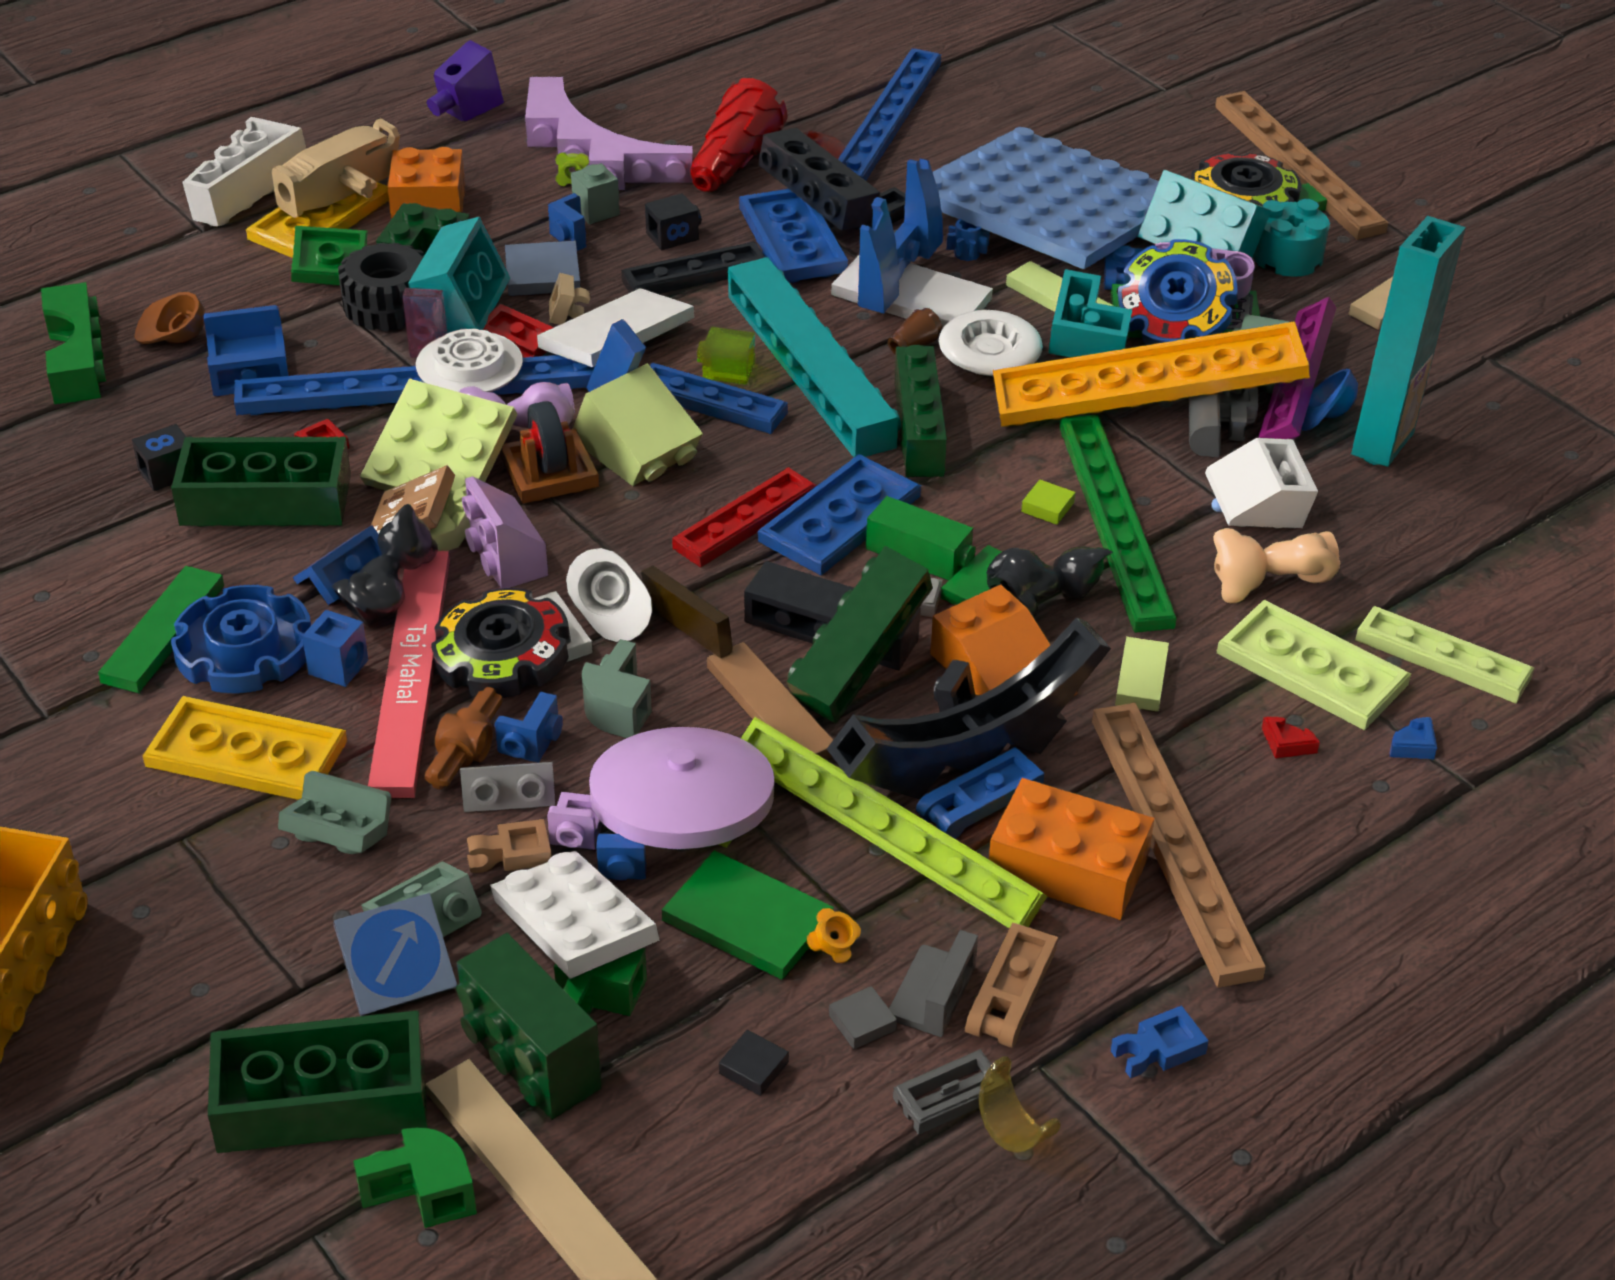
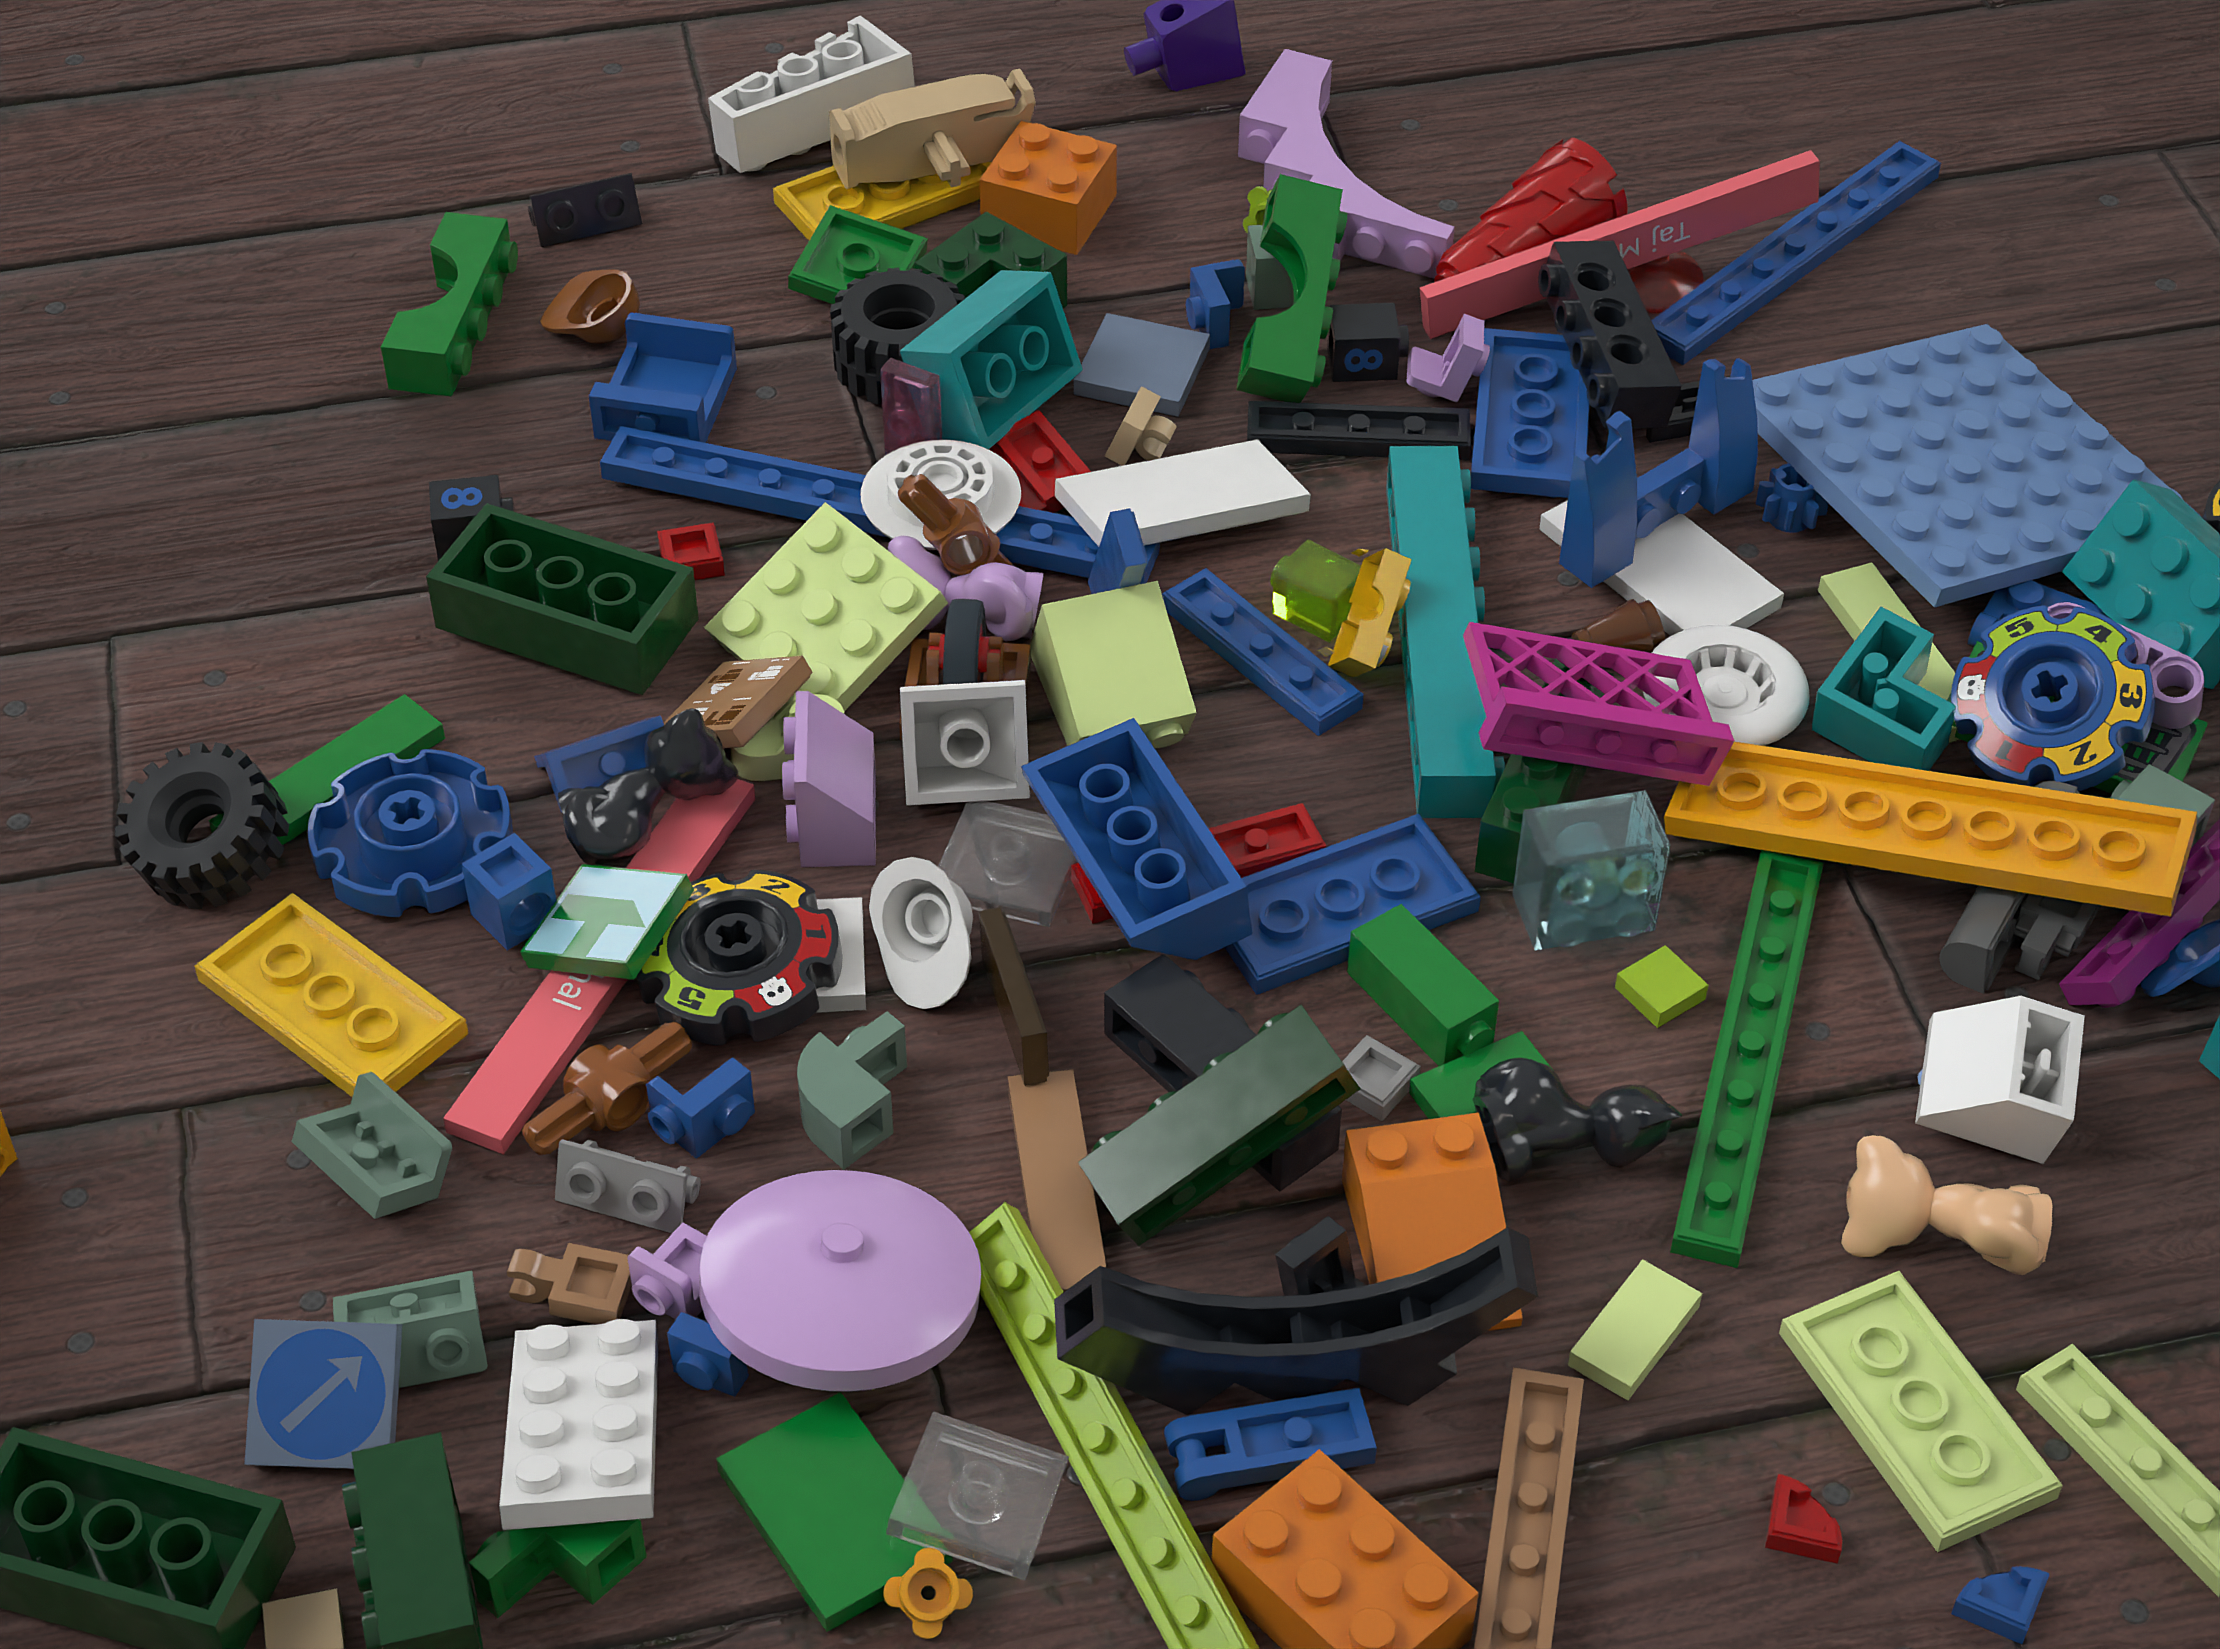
camera: 25 degrees right, 5 degrees up
(89, 649) = (181, 797): none -> black tyre
(128, 269) = (585, 210): none -> black hinge
(409, 646) = (607, 921): none -> tile
(497, 370) = (947, 520): none -> dark orange axle
(574, 484) = (964, 742): none -> white slope
(613, 163) = (1300, 232): none -> green arch
(638, 540) = (1009, 861): none -> clear plate
(723, 501) = (1142, 843): none -> blue slope
(735, 219) = (1449, 374): none -> lavender bracket
(772, 346) = (1375, 597): none -> yellow piece
(811, 119) = (1638, 236): none -> coral tile
(832, 874) = (978, 1495): none -> clear plate
(939, 362) = (1590, 728): none -> dark pink fence
(981, 448) = (1590, 870): none -> clear light blue brick

